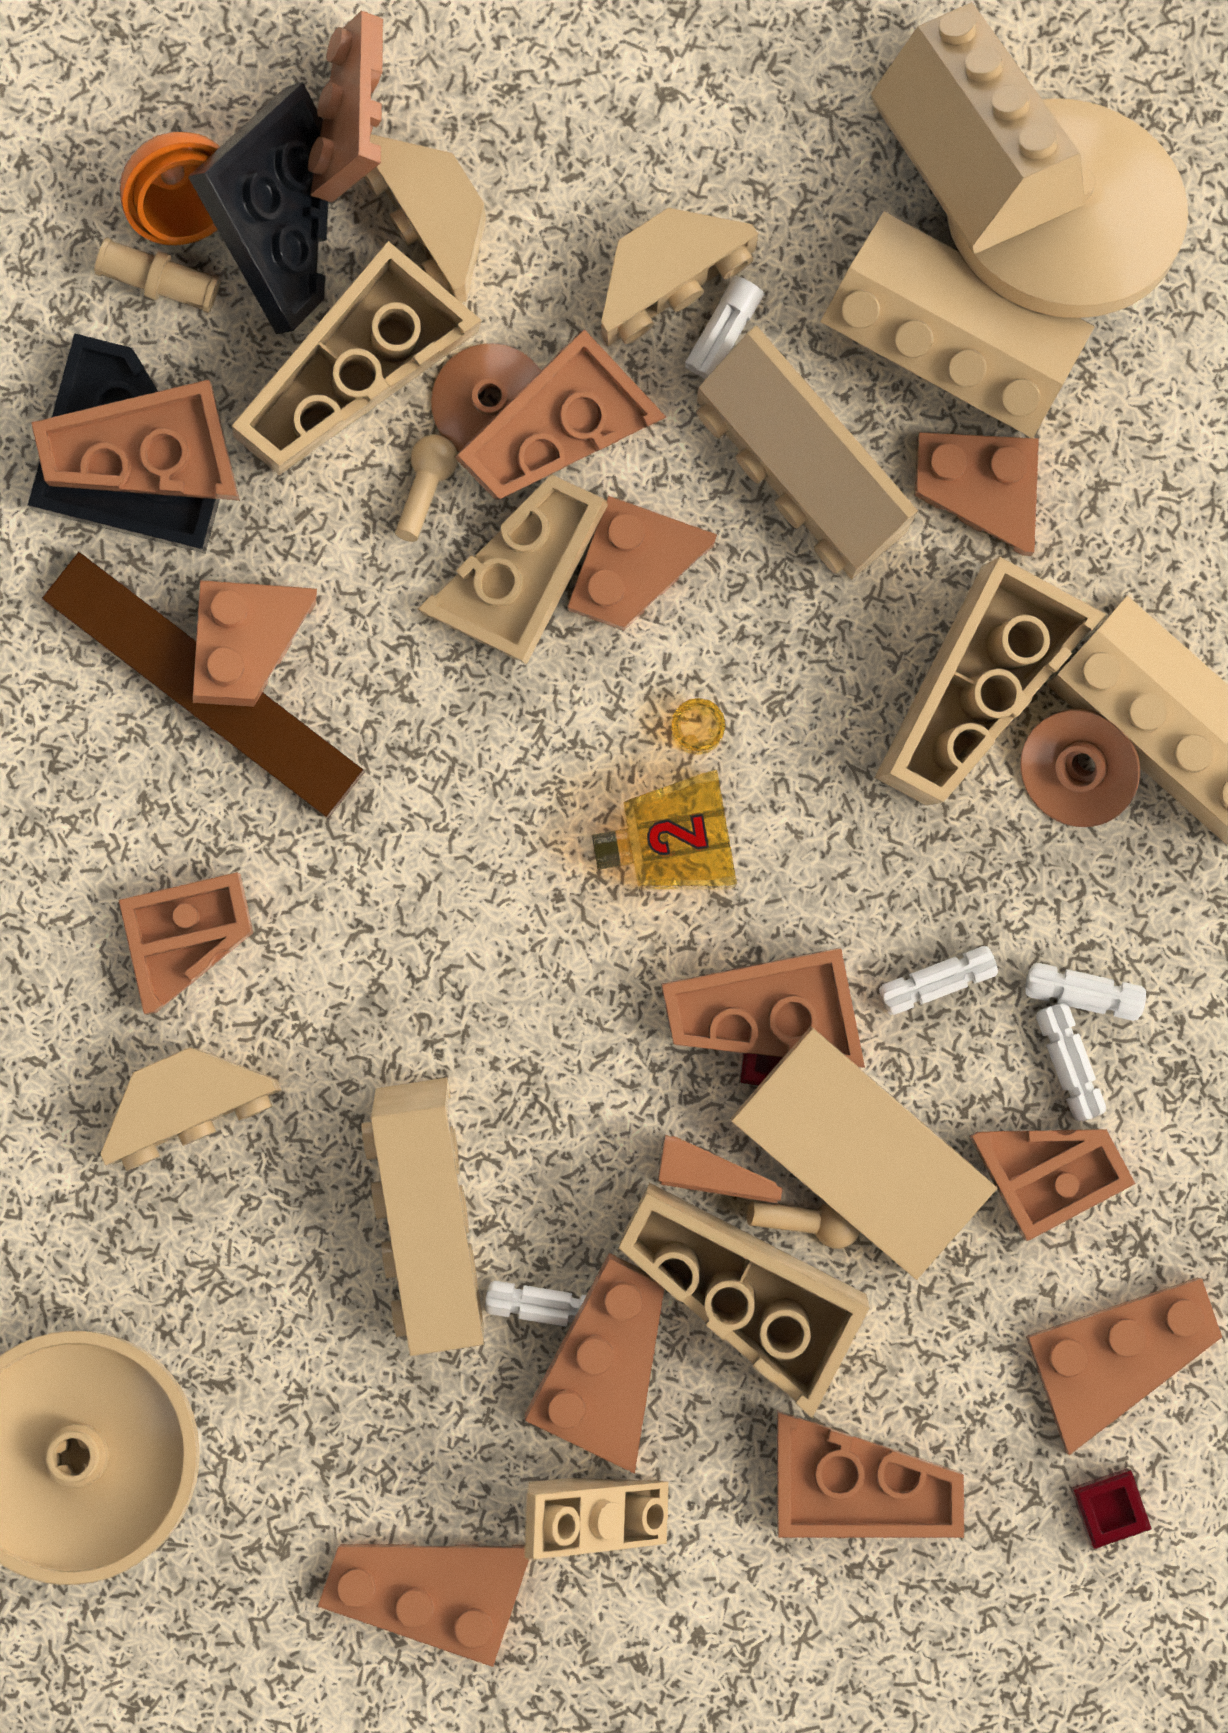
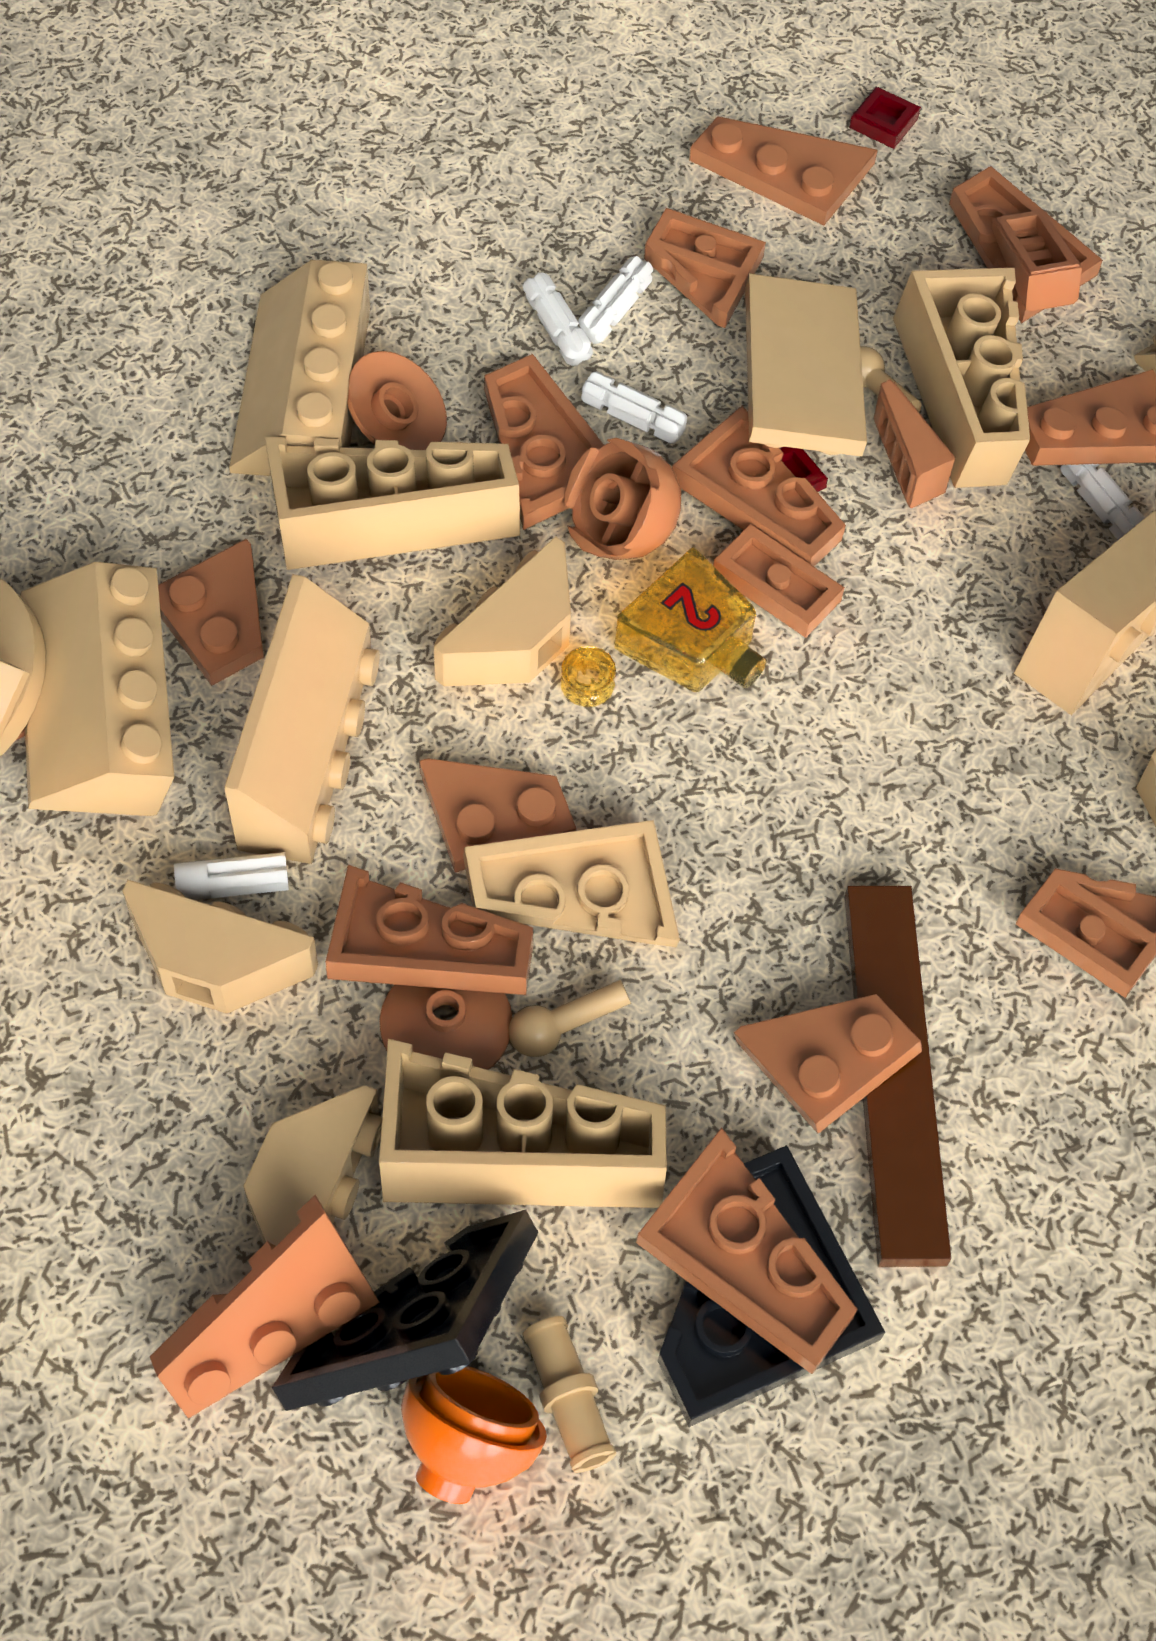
camera: 130 degrees left, 25 degrees down
(669, 948) = (779, 580): none -> nougat plate
(774, 1444) = (1043, 264): none -> nougat slope
(782, 701) = (513, 626): none -> tan slope
(826, 869) = (622, 500): none -> nougat cylinder
(950, 870) = (542, 435): none -> nougat wing

